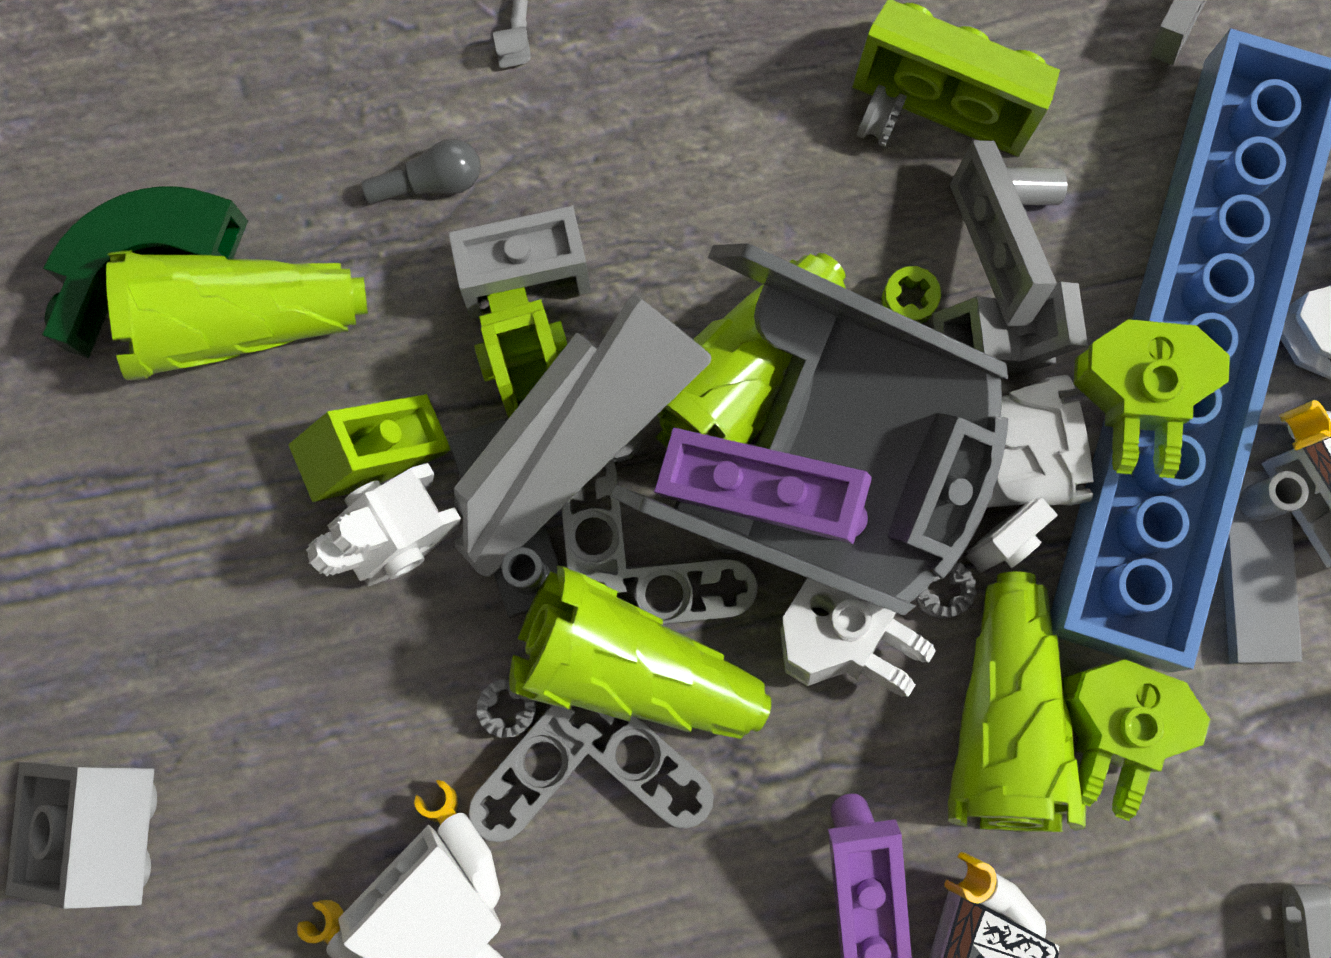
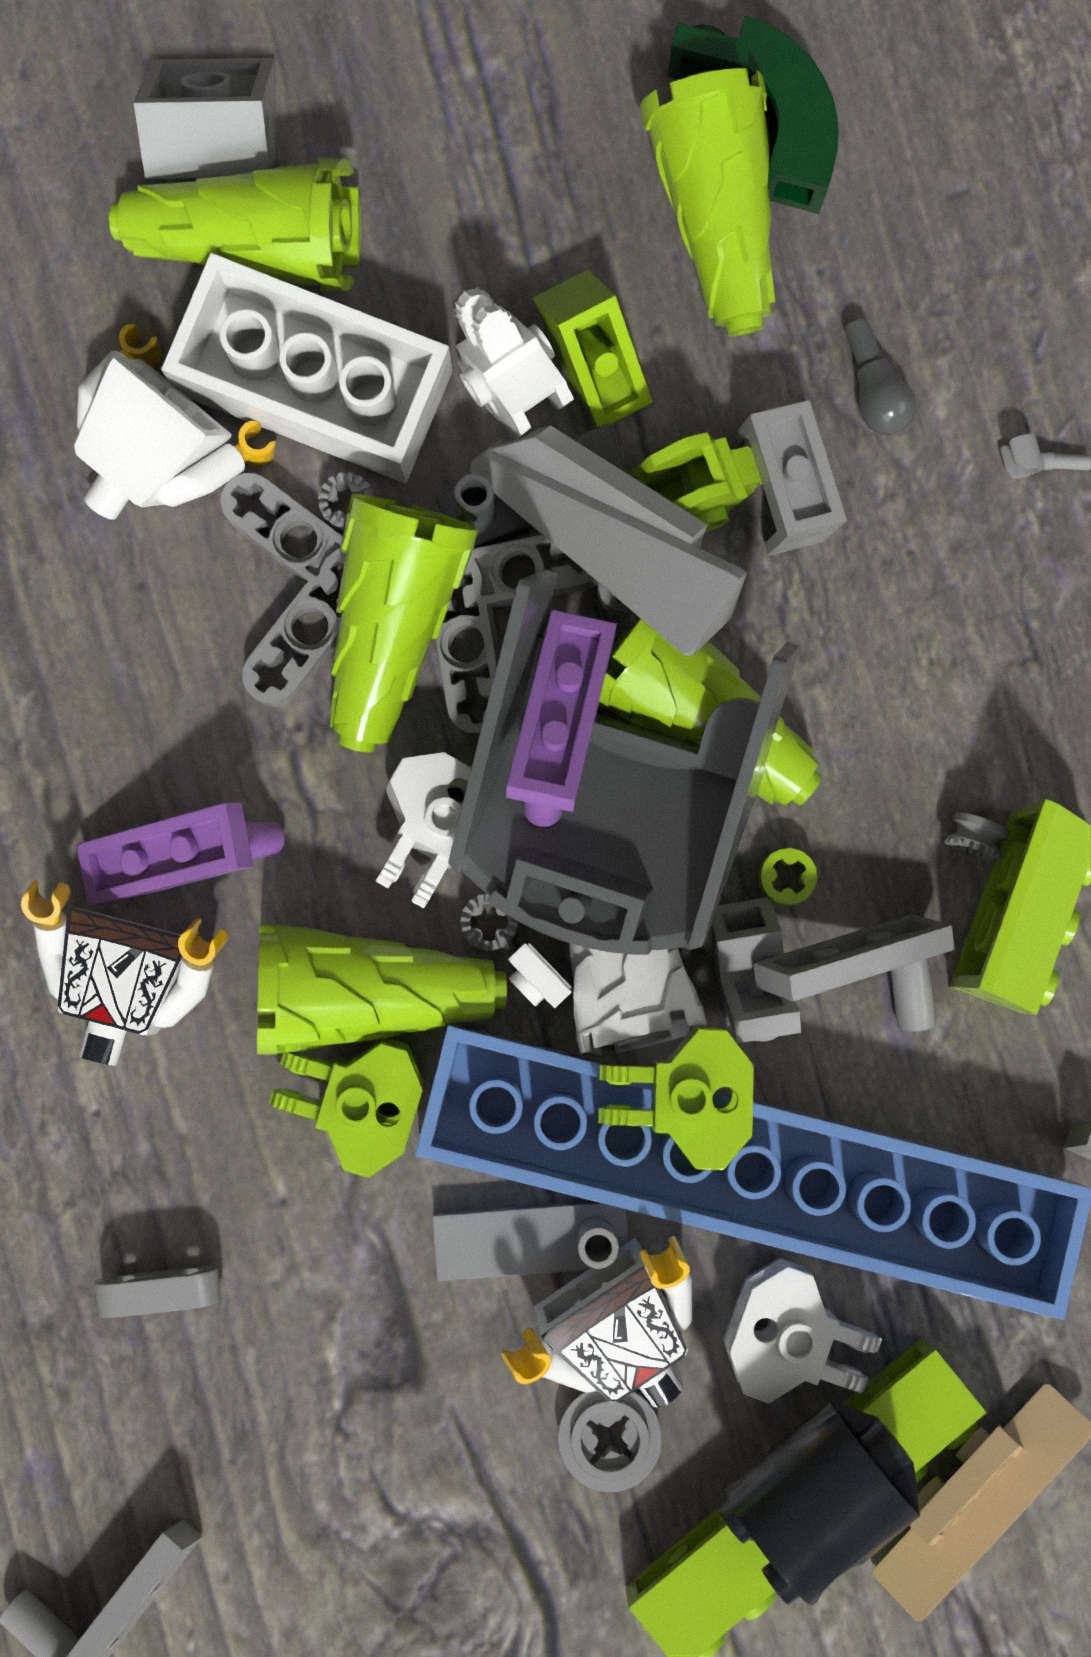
camera: 85 degrees right, 5 degrees up
(206, 773) = (276, 221): none -> lime cone
(364, 740) = (308, 368): none -> white brick

